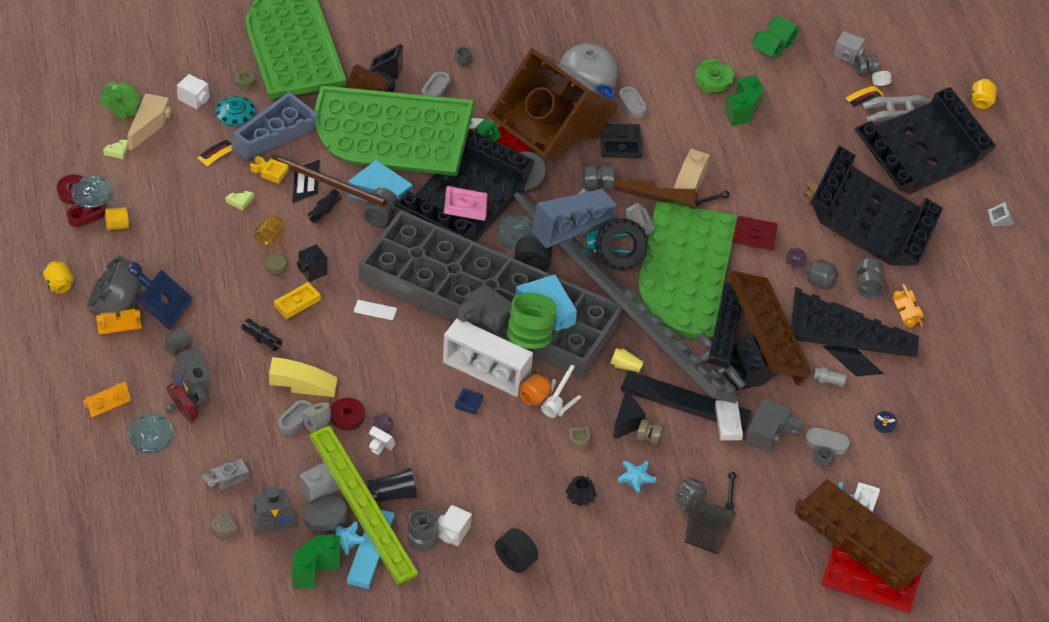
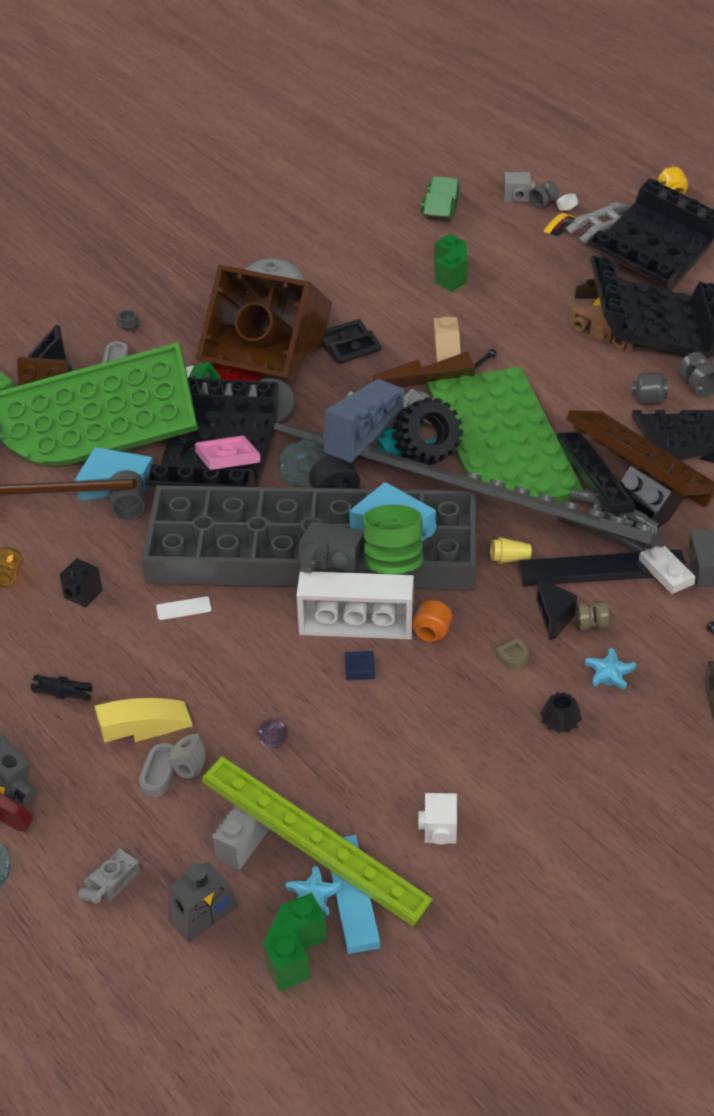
camera: 20 degrees left, 5 degrees down
(223, 525) = (141, 947): dark tan tile -> none
(275, 264) = (33, 602): olive tile -> none
(297, 300) = (84, 632): yellow plate -> none
(304, 185) = (20, 506): black sticker -> none
(324, 206) = (58, 518): black pin -> none
(325, 513) = (268, 873): dark grey tile -> none
(353, 408) = (226, 728): dark red piece -> none
(380, 441) = (284, 752): white tile -> none
(393, 486) = (338, 799): black plant -> none
(422, 530) = (407, 840): dark grey wheel -> none
(516, 550) = (539, 815): black tyre -> none
(553, 404) = (461, 630): white plant -> none
(598, 176) = (350, 379): dark grey wheel -> none
(632, 102) = (341, 305): light grey tile -> none
(687, 490) = (689, 664): dark grey head -> none
(709, 84) = (403, 253): bright green plate -> none
(755, 233) = (551, 376): dark red plate -> none
(796, 257) = (610, 383): clear purple plate -> none

